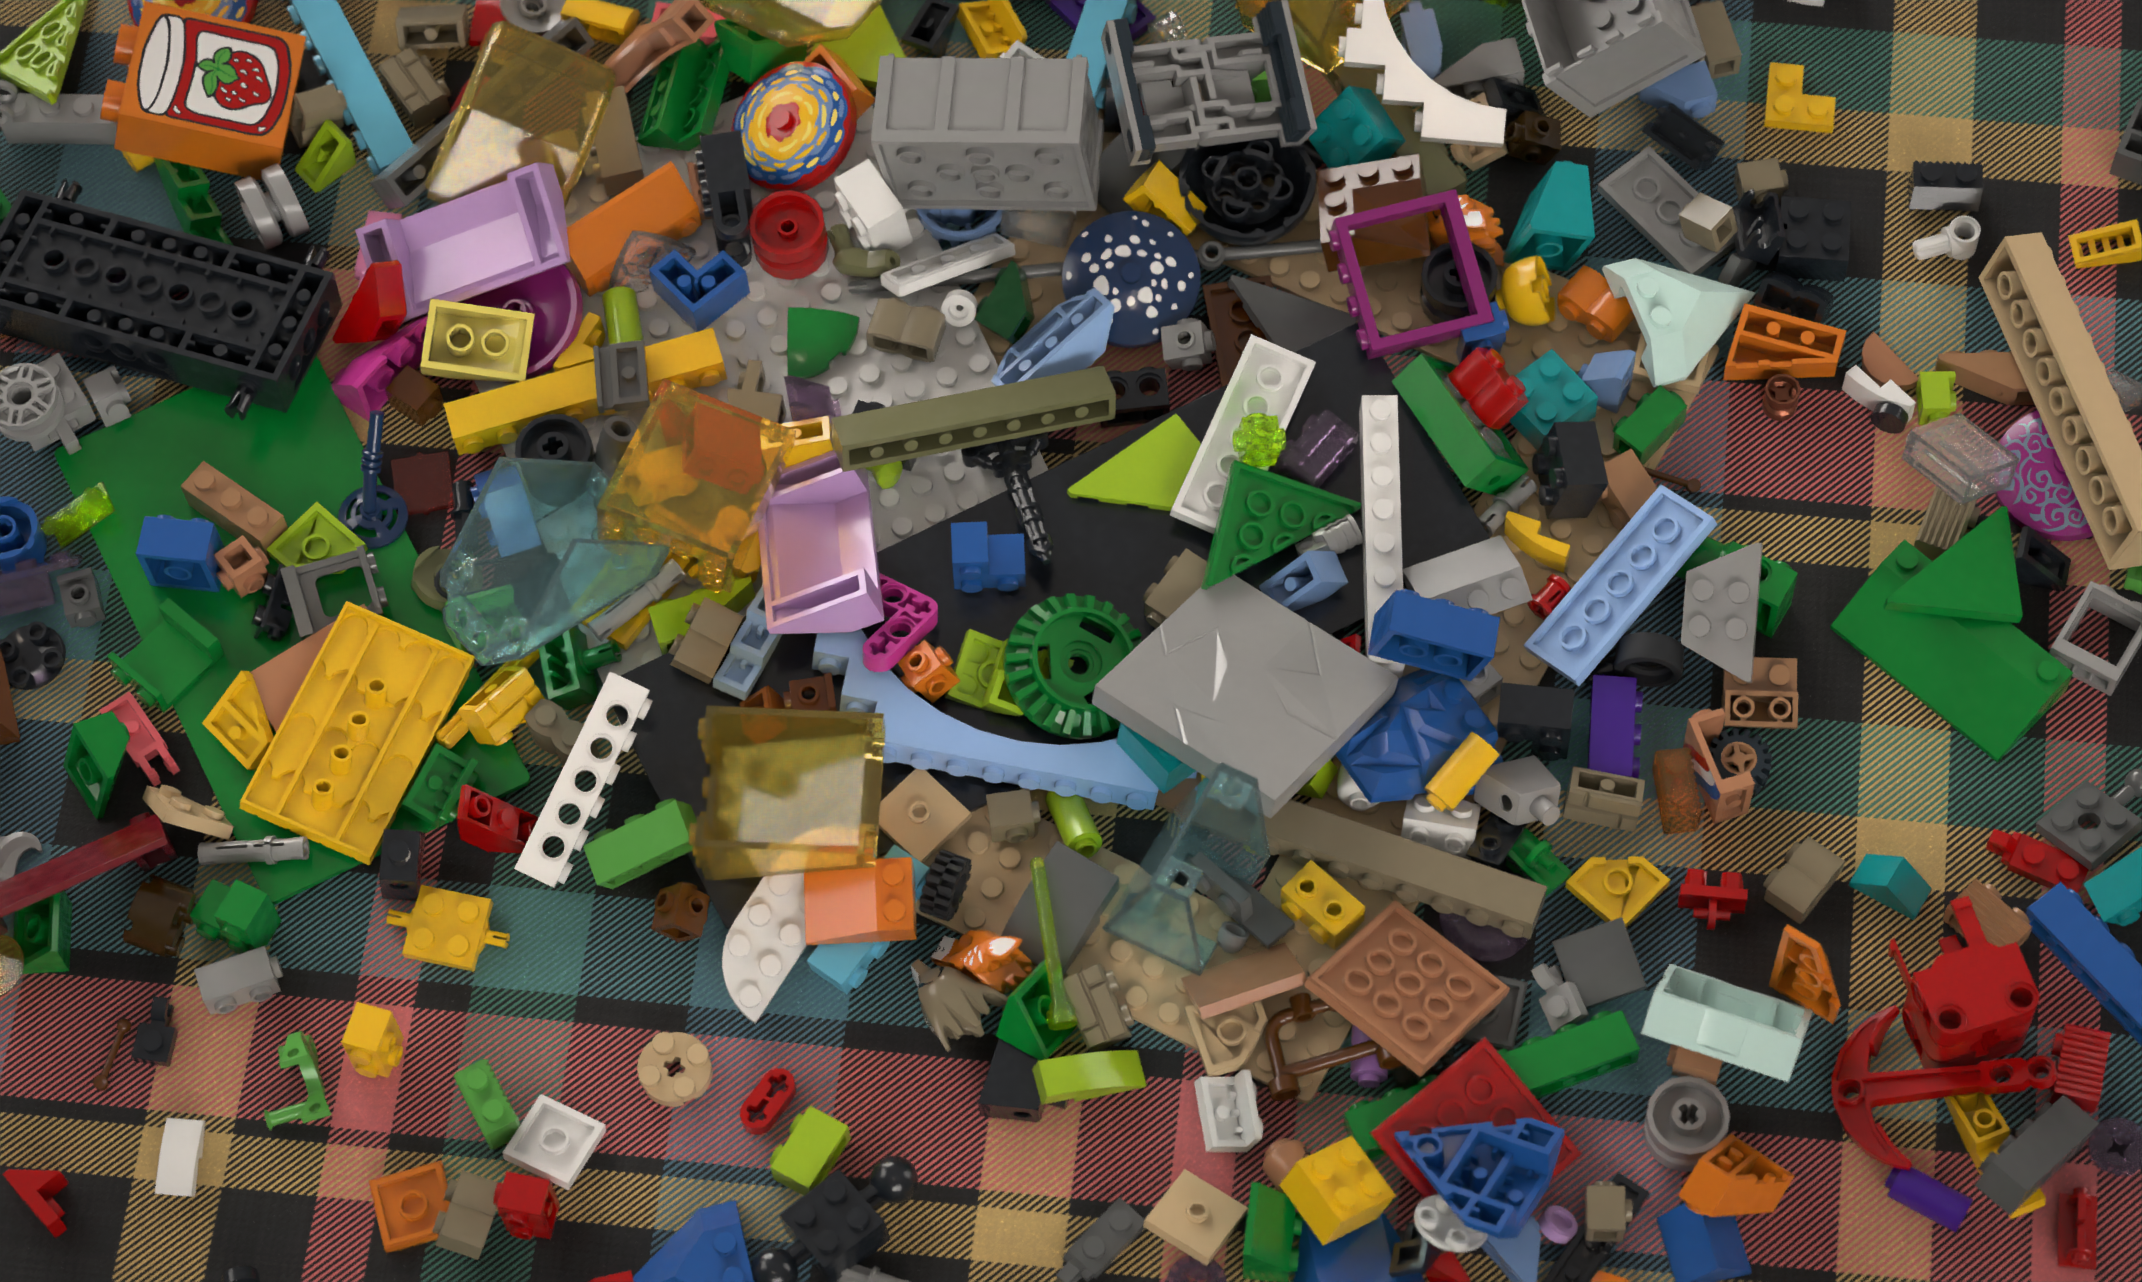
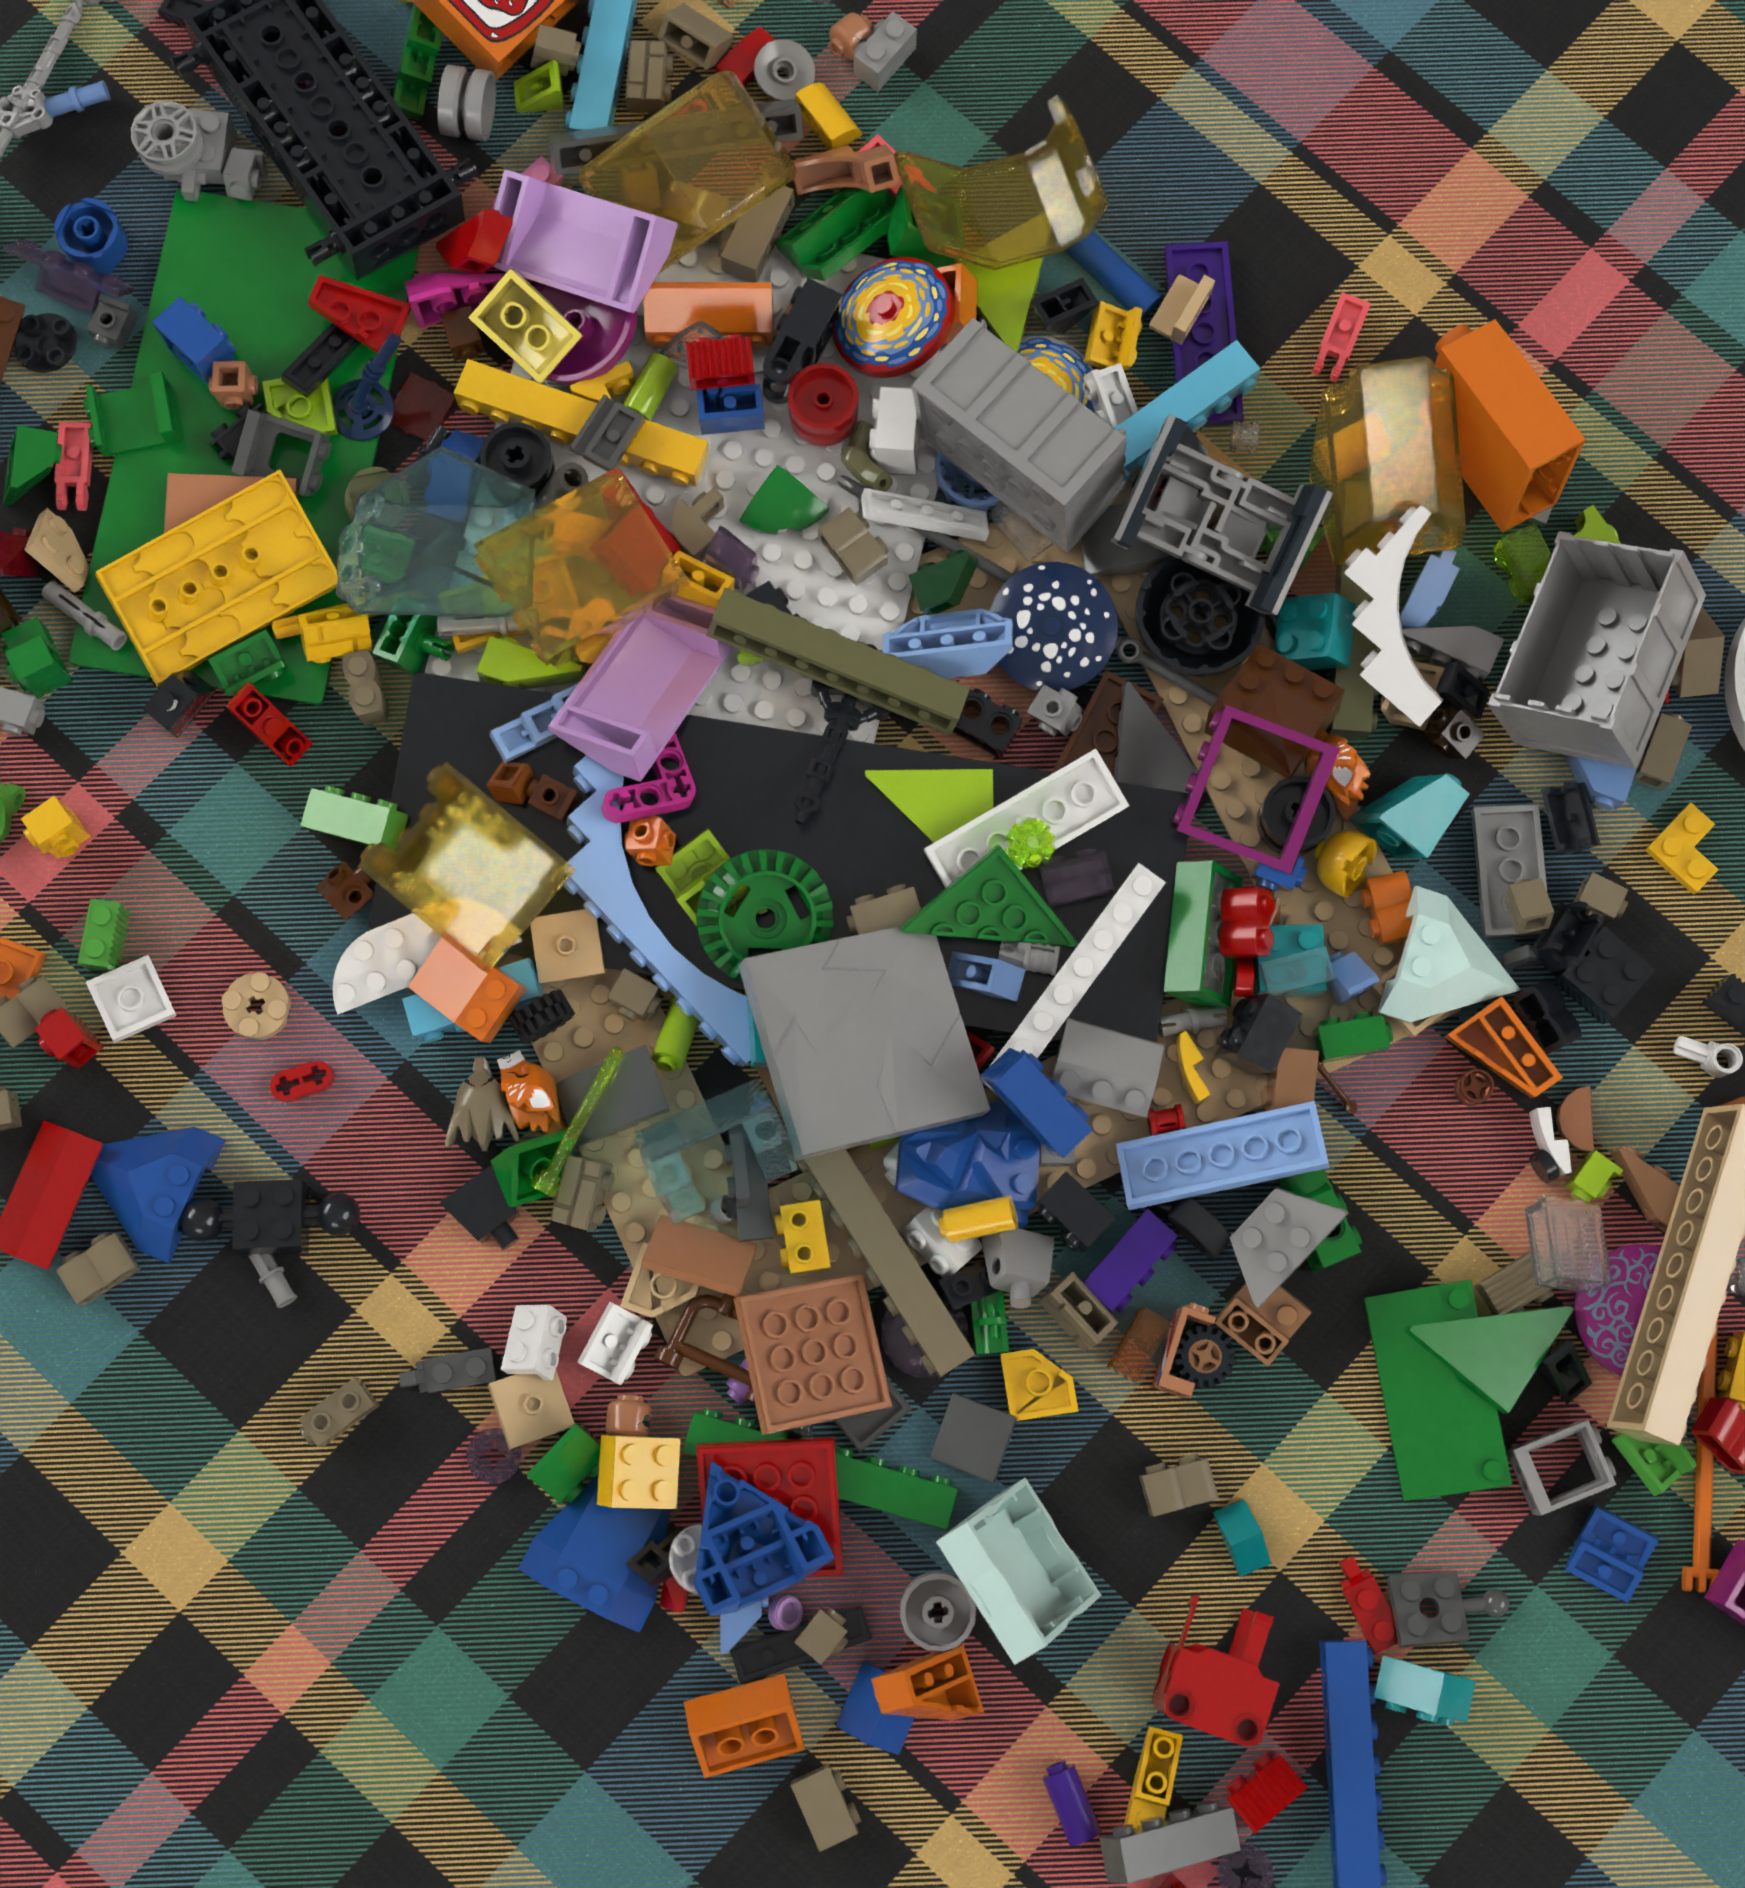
camera: 30 degrees right, 15 degrees up
(79, 515) = (153, 255): clear neon green hinge -> none
(233, 507) = (261, 330): medium nougat brick -> none
(241, 722) = (145, 508): yellow wing -> none
(309, 476) = (319, 360): none -> black tile
(316, 431) = (359, 311): none -> red wing
(447, 928) = (179, 776): yellow plate -> none
(615, 692) = (272, 773): white brick -> none
(677, 252) = (720, 362): none -> red brick
(706, 639) = (508, 695): dark tan brick -> none
(809, 1151) = (298, 1144): lime brick -> none
(959, 308) = (905, 557): white tile -> none
(986, 559) = (757, 781): blue brick -> none
(1088, 1075) = (536, 1241): lime slope -> none
(1154, 1160) = (534, 1341): none -> white bracket
(1160, 195) = (1122, 576): yellow brick -> none
(1522, 436) = (1243, 977): none -> red beam
(1562, 393) = (1297, 971): none -> clear light blue plate
(1562, 1002) = (923, 1445): light grey plate -> none
(1711, 901) = (1113, 1457): red hips -> none
(1805, 974) = (1119, 1565): orange wedge -> none
(1896, 1087) = (1107, 1698): red piece -> none
(1998, 921) = (1291, 1630): medium nougat brick -> none

